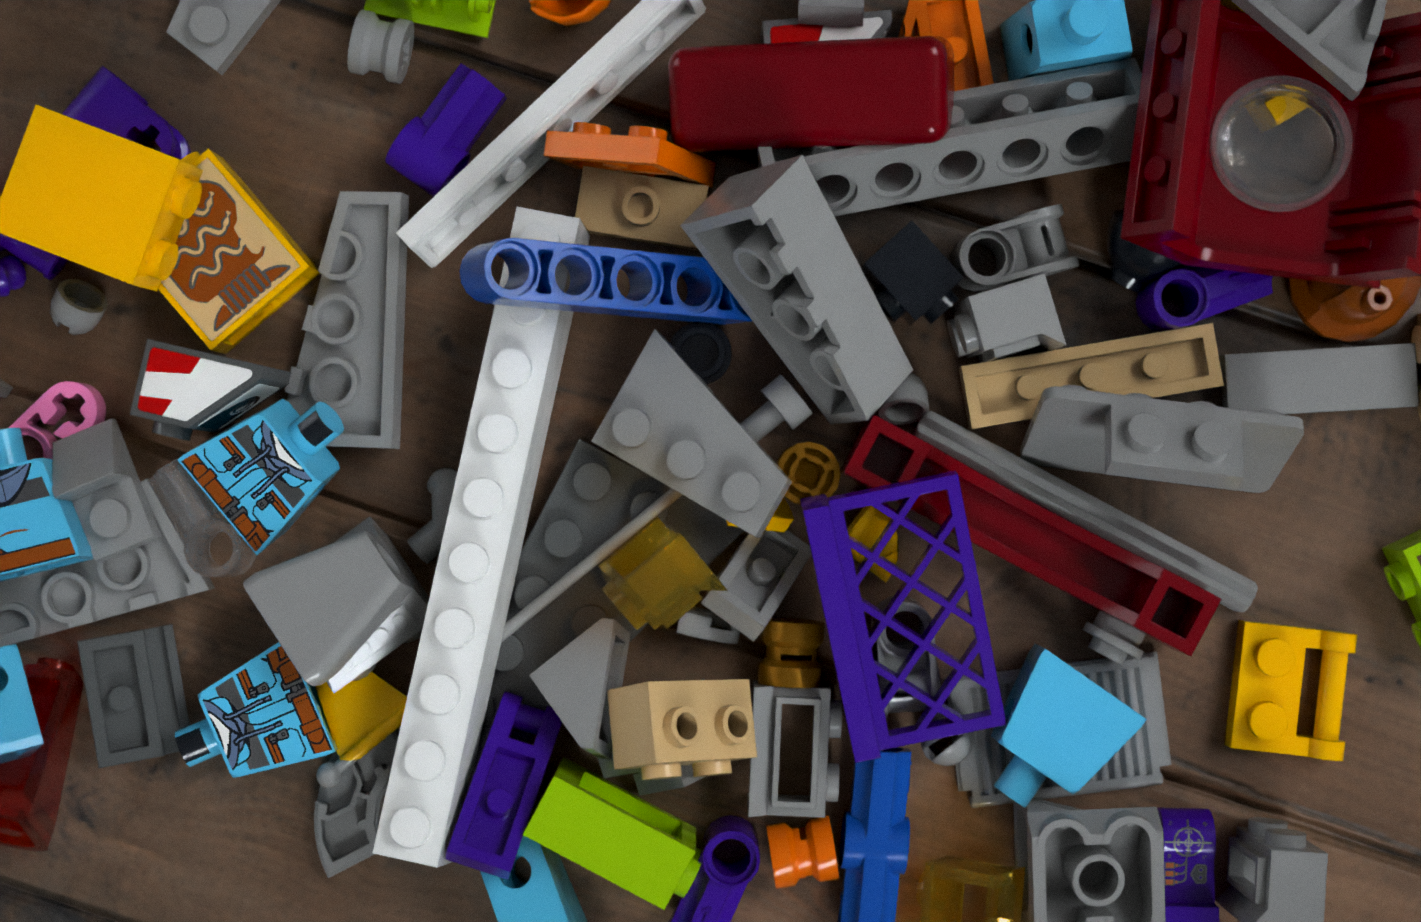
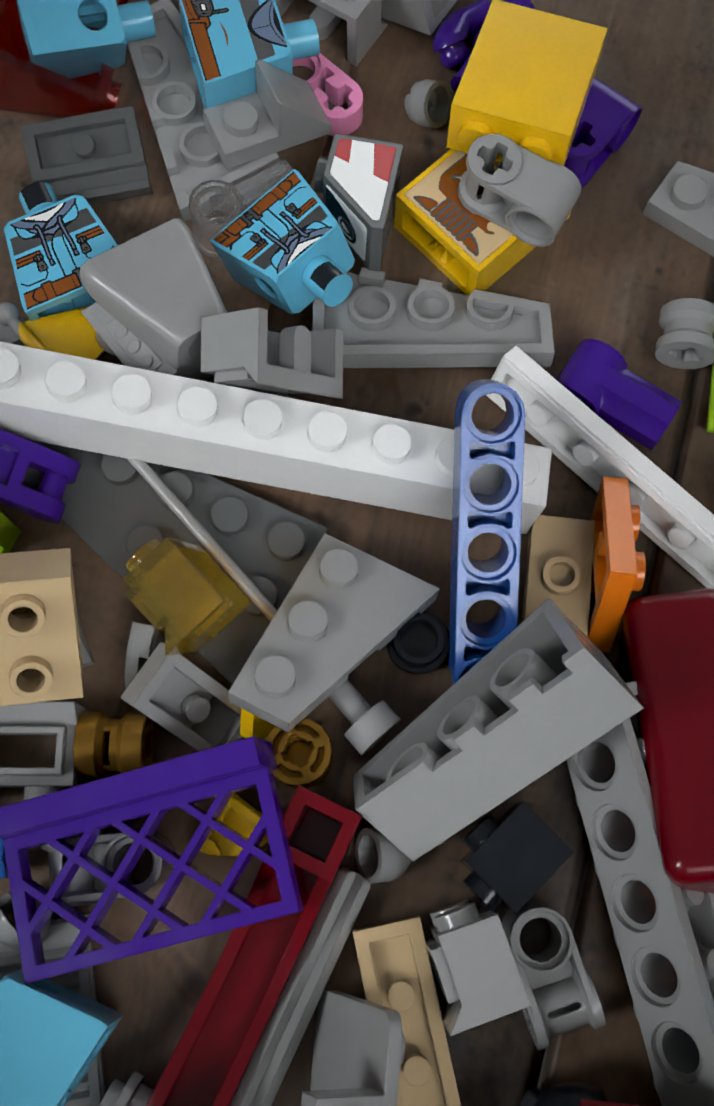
camera: 90 degrees right, 15 degrees down
(232, 211) = (521, 194): none -> light grey piece
(409, 485) = (291, 362): none -> light grey window
(578, 682) = (82, 521): light grey slope -> none

